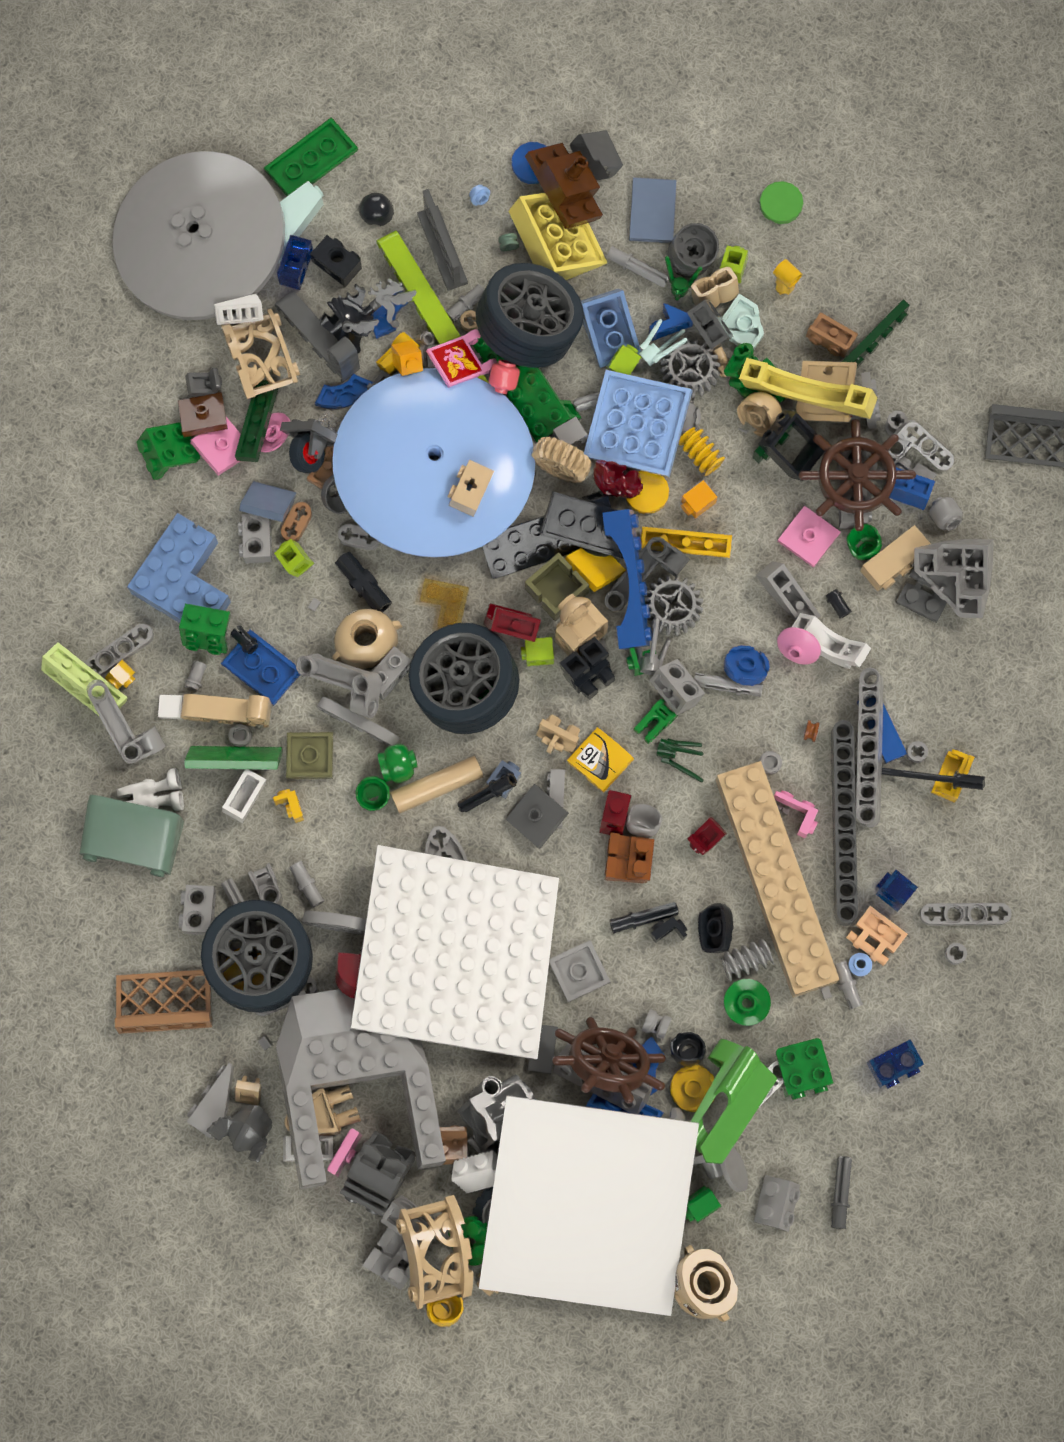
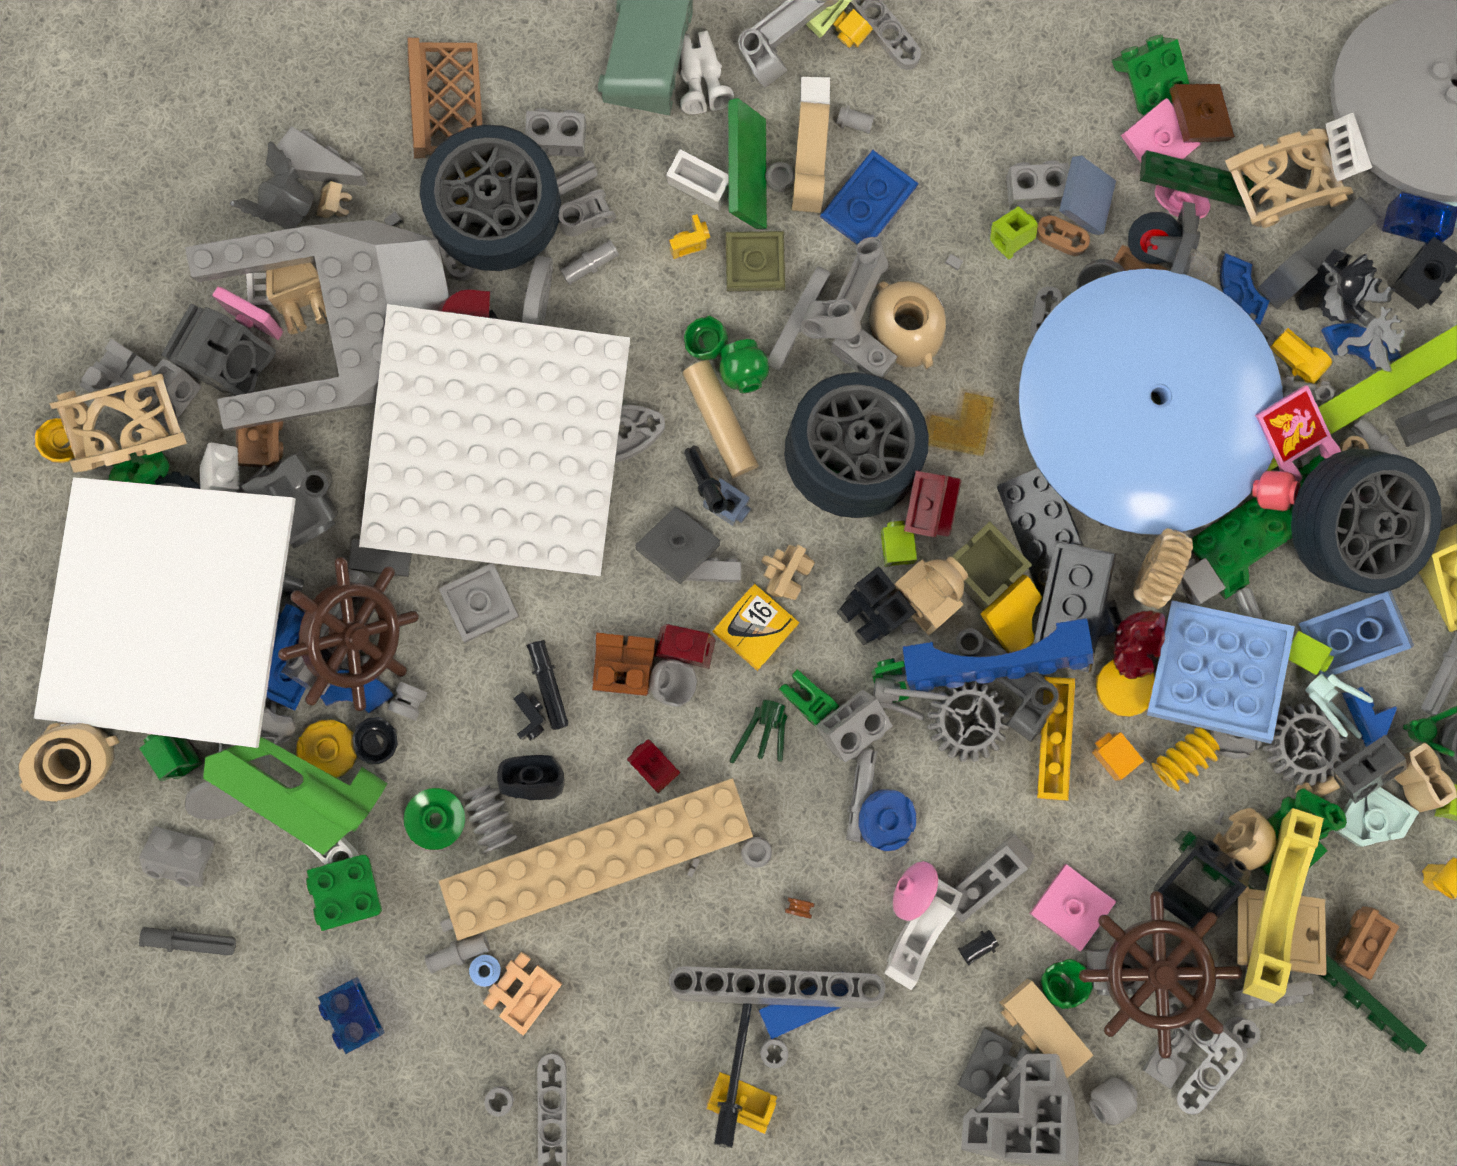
camera: 85 degrees right, 5 degrees up
(171, 568) = (987, 81): medium blue piece -> none
(203, 383) = (1244, 112): dark grey bracket -> none
(204, 629) = (914, 119): green bracket -> none
(247, 643) = (897, 178): black pin -> none
(363, 582) = (984, 319): black piece -> none
(407, 357) = (1294, 362): light orange brick -> none
(466, 500) = (1124, 455): tan brick -> none
(808, 824) = (671, 902): bright pink bracket -> none
(844, 811) = (659, 957): dark grey beam -> none
(895, 889) = (579, 1019): clear blue brick -> none
(913, 491) = (1142, 1056): blue hinge -> none

